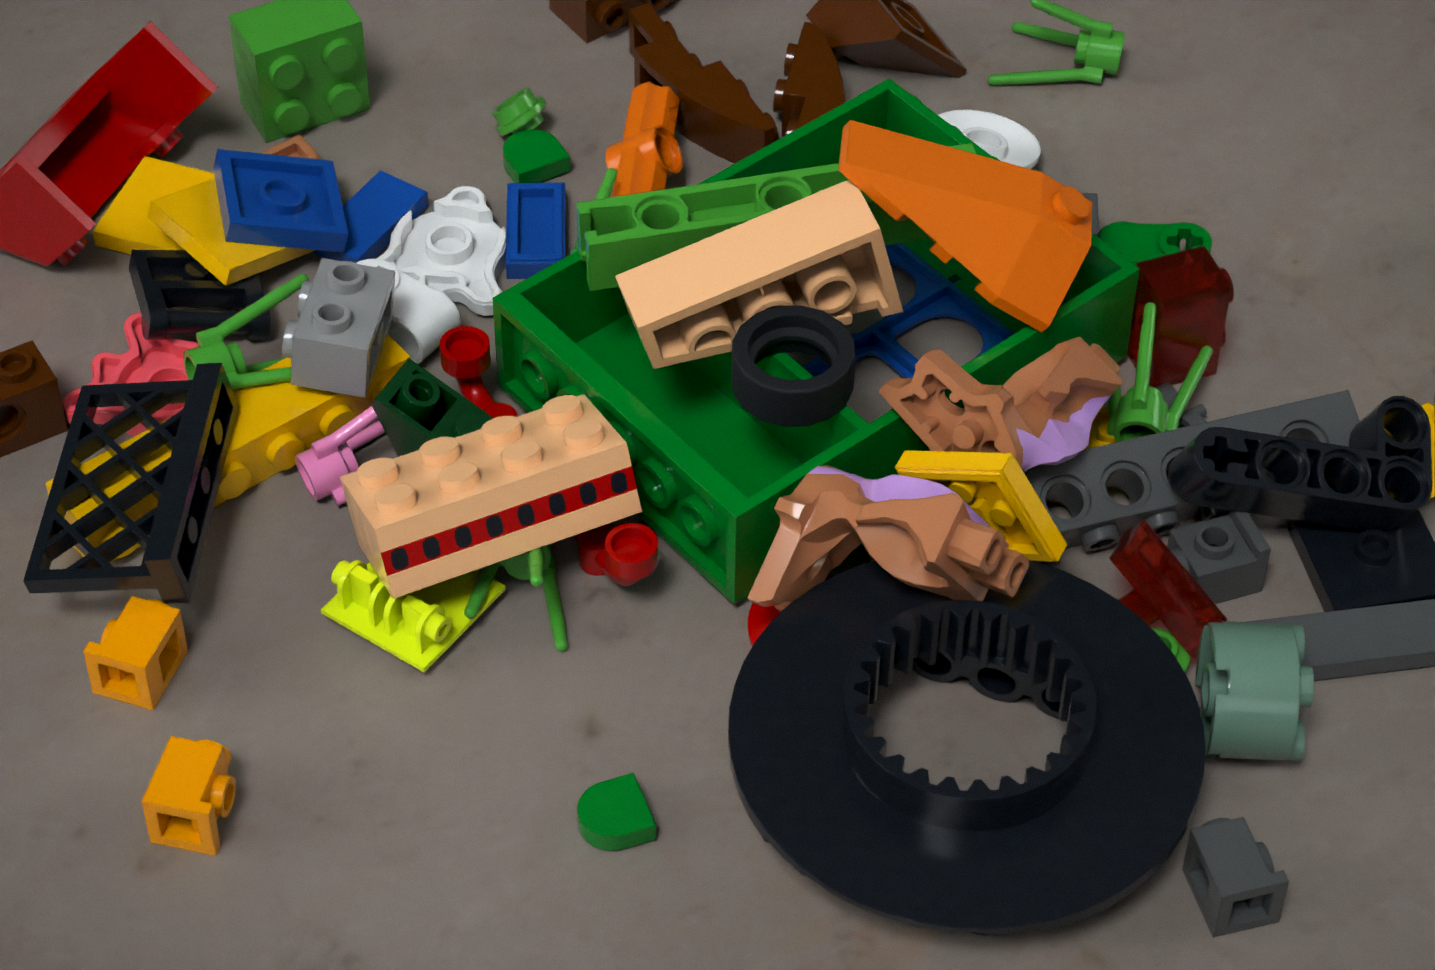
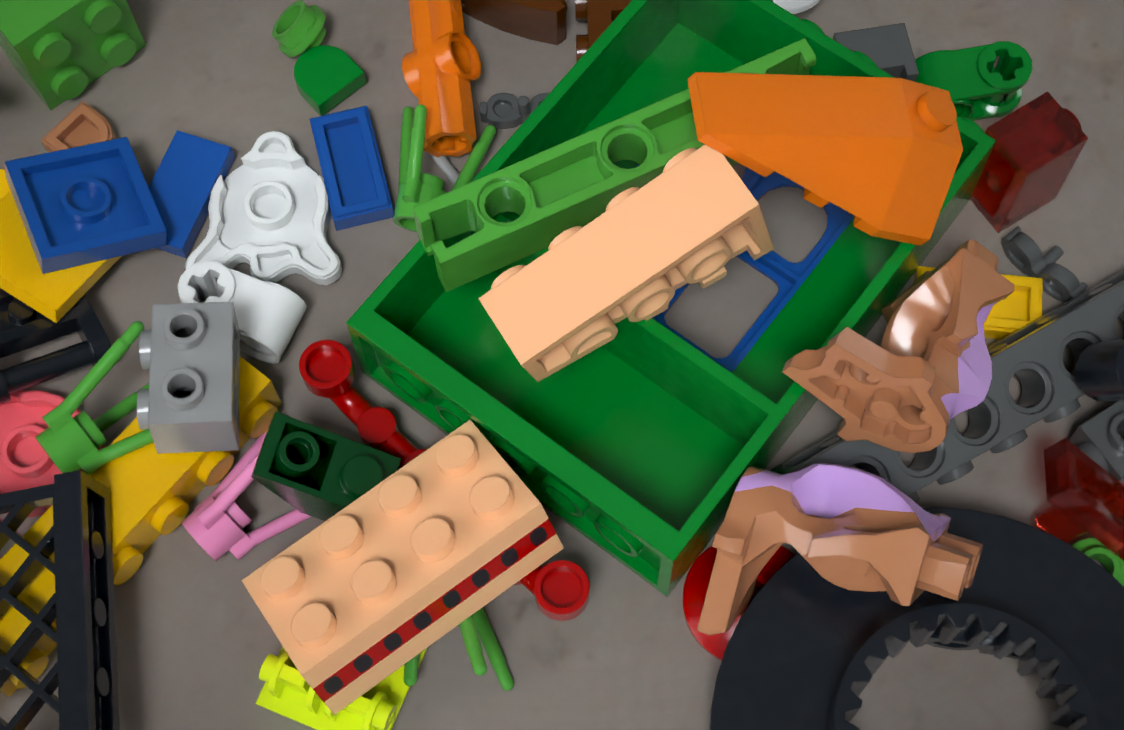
camera: 10 degrees left, 20 degrees up
(793, 401) = (688, 309): black tyre -> none
(996, 492) = (931, 470): yellow tile -> none
(1143, 406) = (1031, 287): bright green plant -> none

